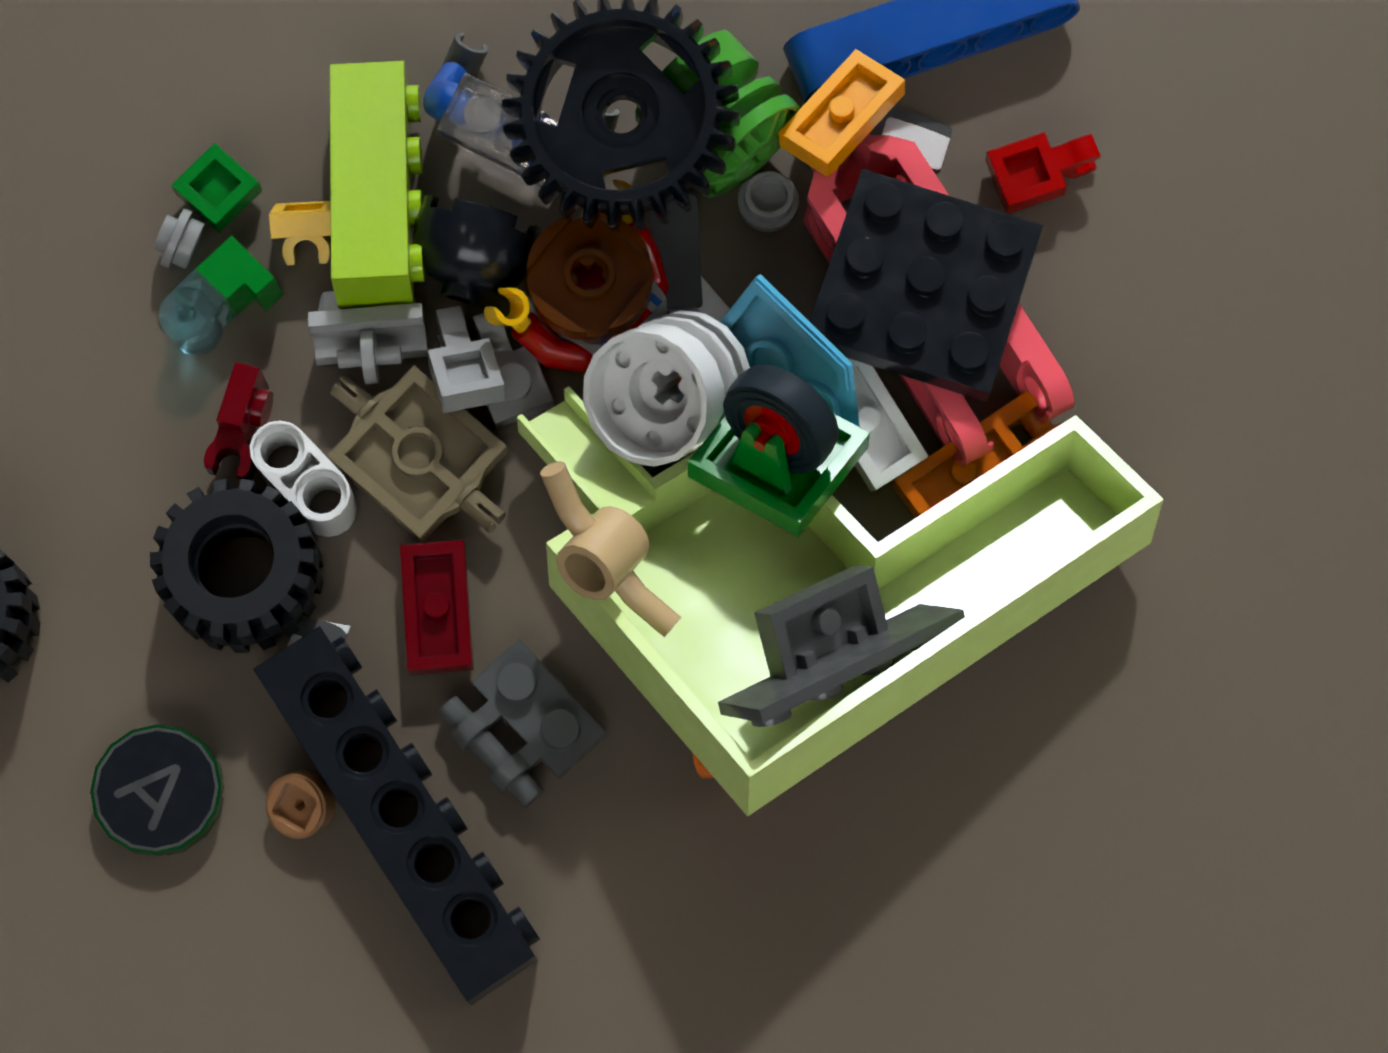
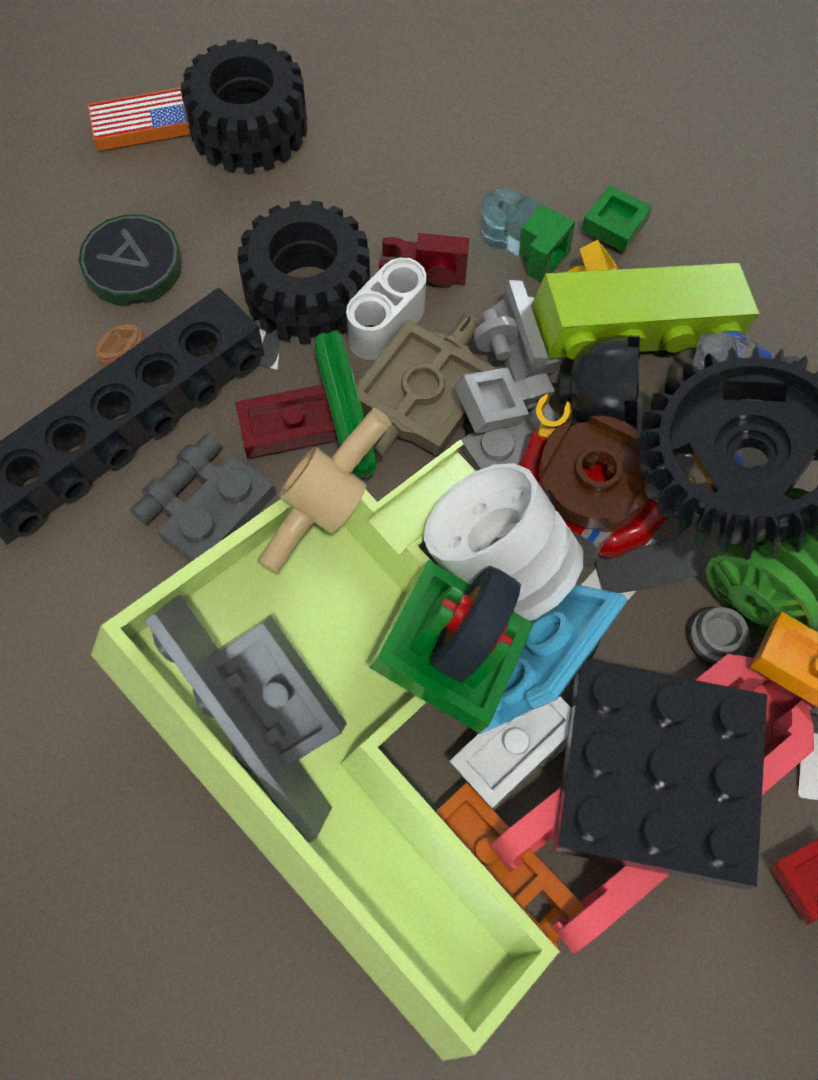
camera: 85 degrees right, 10 degrees down
(178, 239) = (568, 198): light grey plate -> none
(440, 540) = (342, 393): none -> green axle

